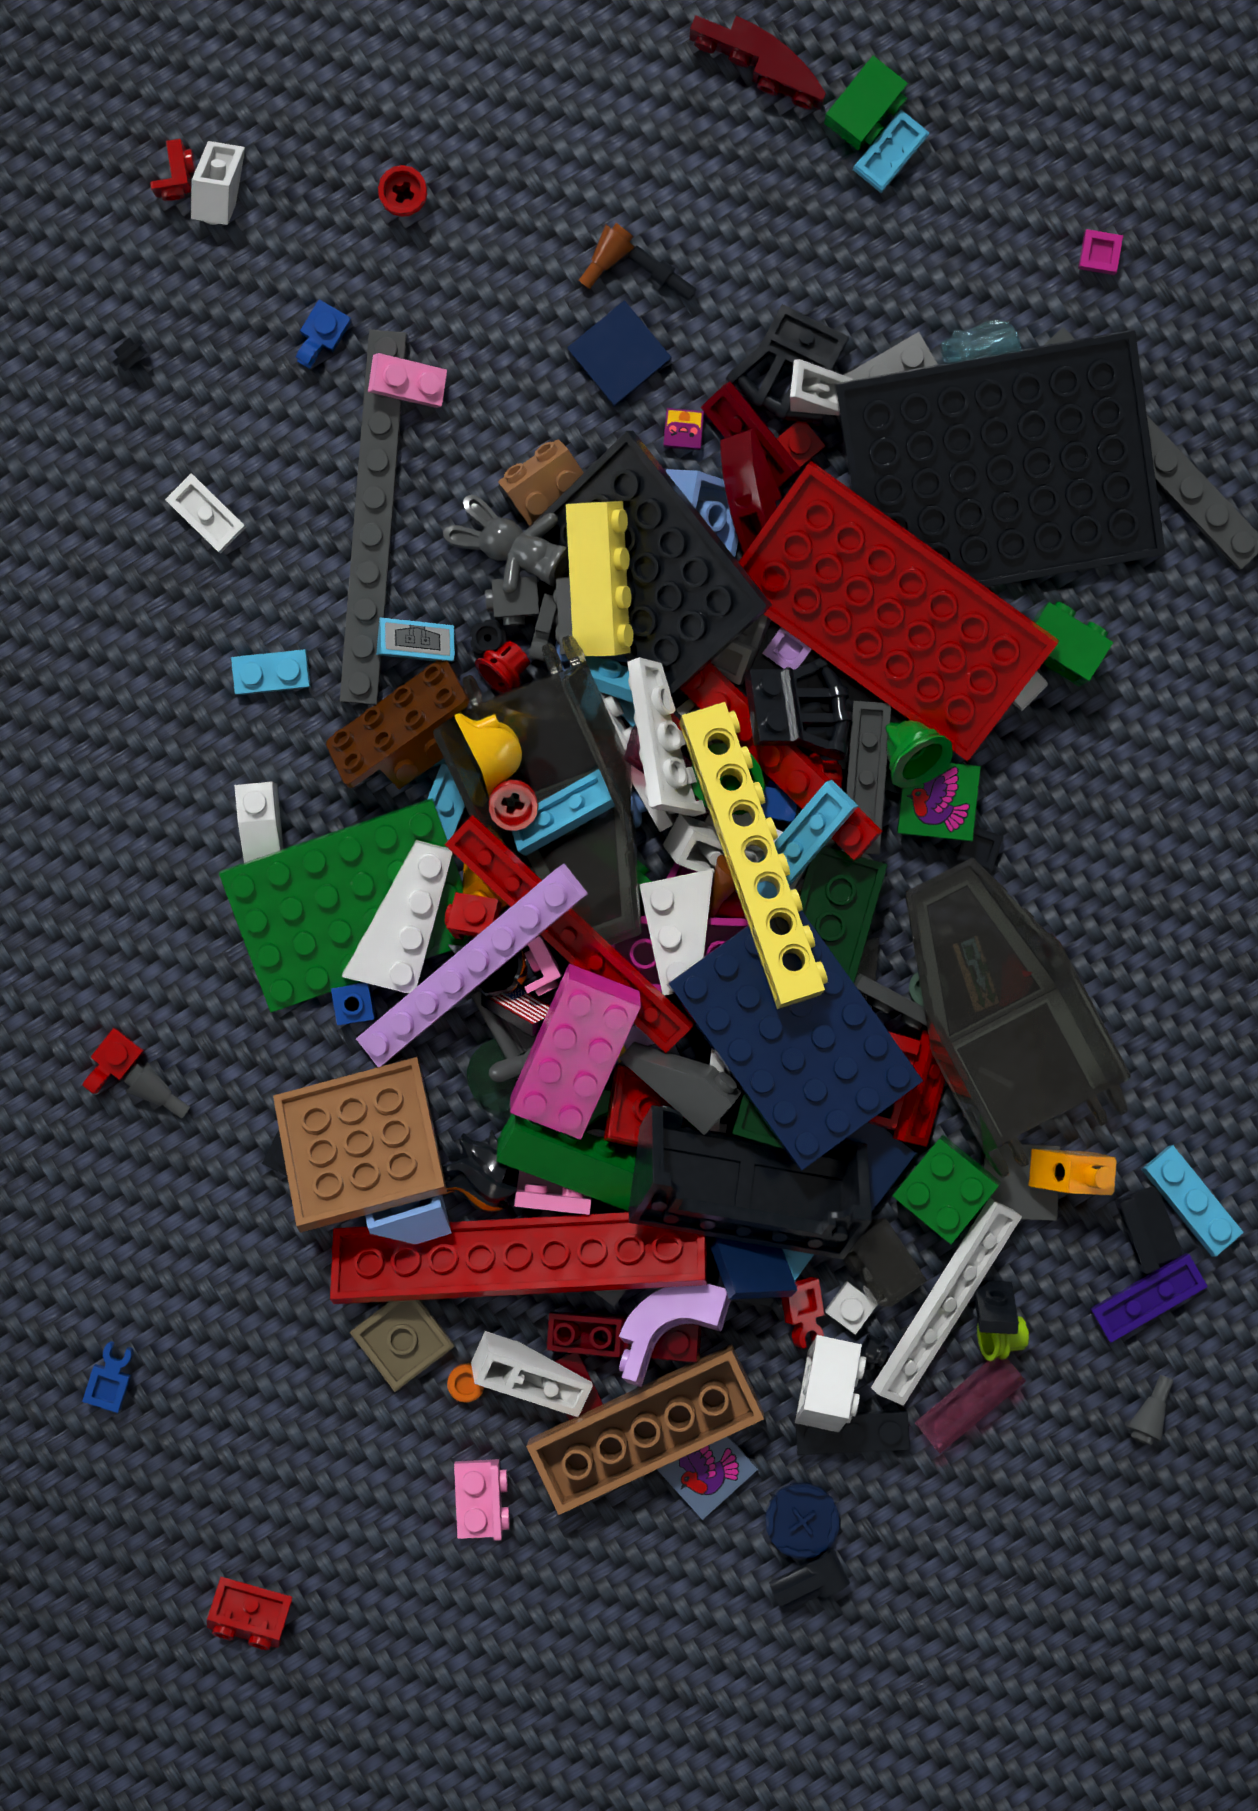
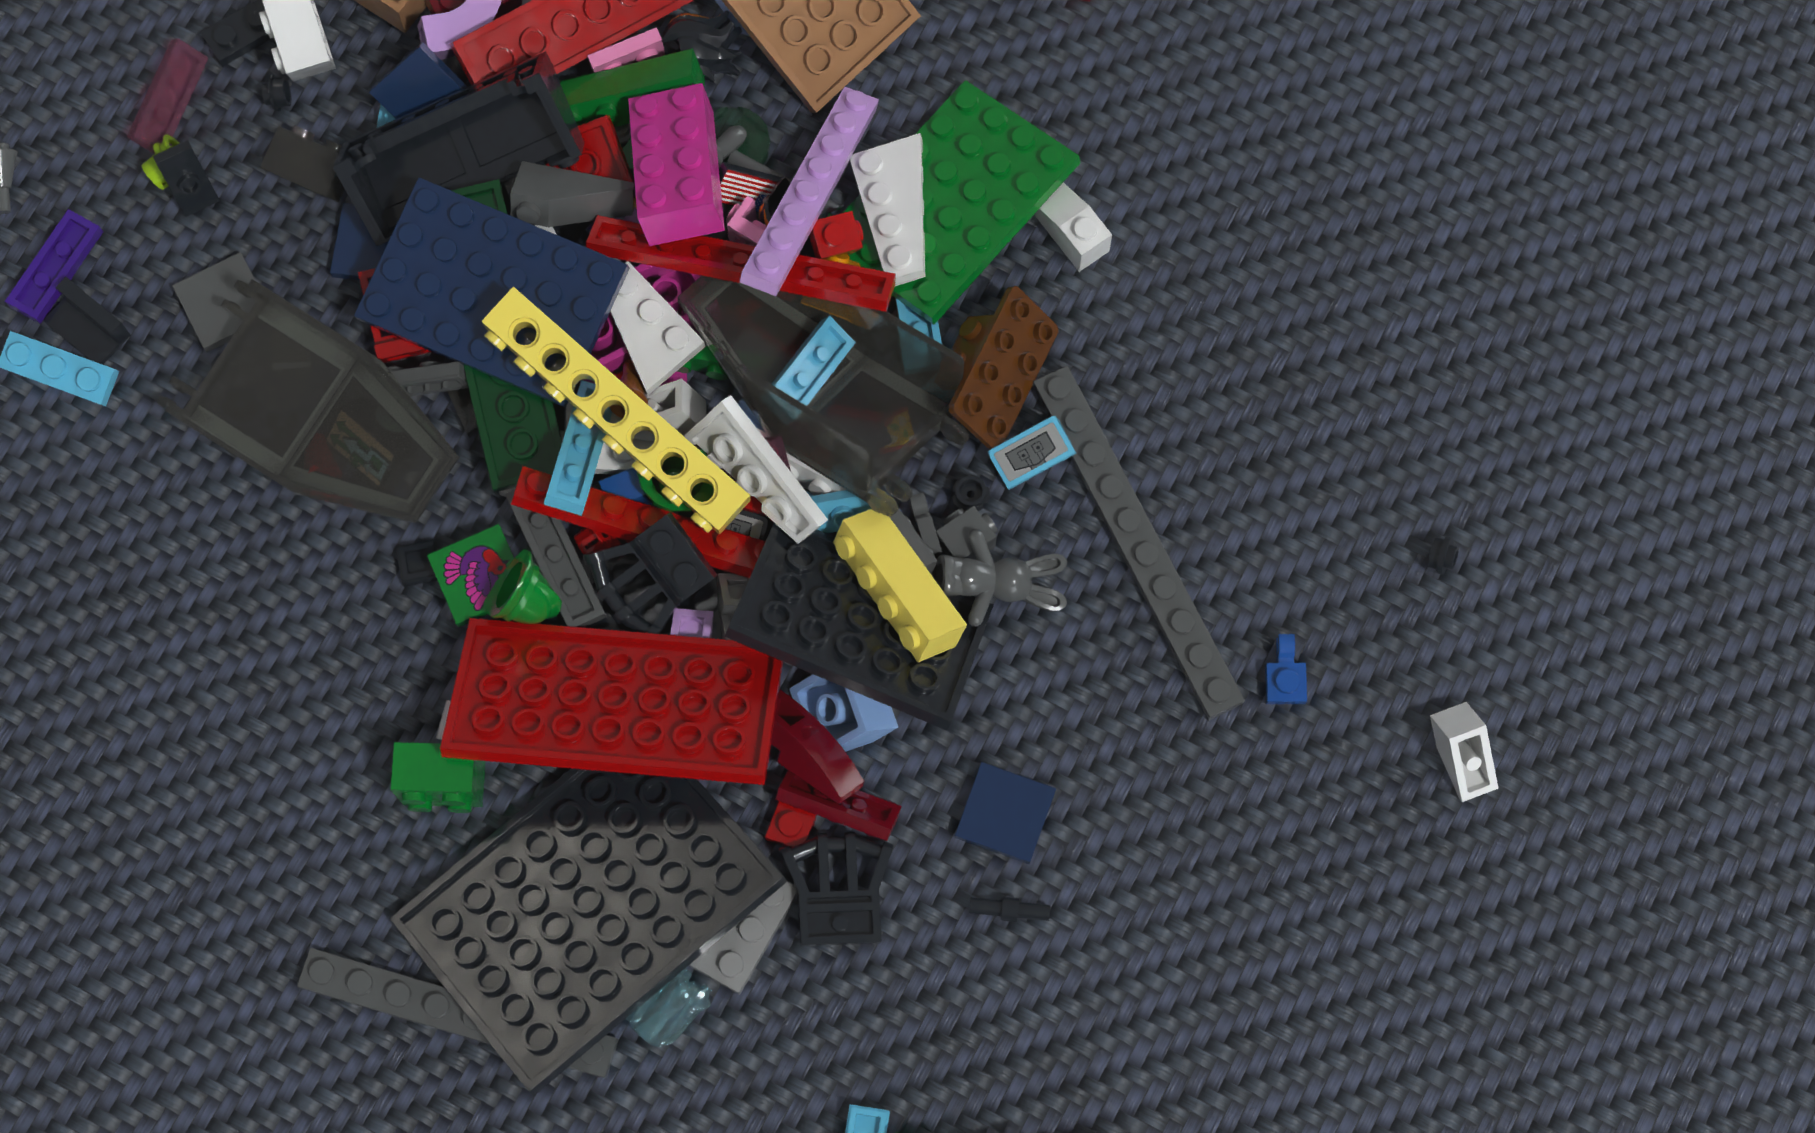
camera: 150 degrees right, 15 degrees down
(181, 165) = (1505, 744): red bracket -> none
(205, 513) = (1286, 457): white plate -> none
(270, 672) = (1143, 358): medium azure plate -> none
(366, 1008) = (887, 130): blue plate -> none
(398, 179) = (1301, 828): red piece -> none
(407, 380) = (1181, 671): bright pink plate -> none
(493, 747) = (905, 382): yellow hat -> none
(503, 666) = (939, 473): red piece -> none
(520, 814) = (853, 342): red piece -> none
(540, 479) = (1006, 656): medium nougat bracket -> none
(610, 249) = (1070, 905): dark orange cone -> none
(683, 429) = (905, 778): magenta tile -> none
(803, 1310) = (355, 93): red plate -> none
(814, 389) = (803, 869): white slope -> none
(850, 1307) = (318, 118): white plate -> none
(922, 1101) = (344, 297): red plate -> none
(946, 1189) = (285, 250): green brick -> none
(946, 1302) = (233, 164): white plate -> none
(1084, 1171) = (177, 324): light orange torso -> none

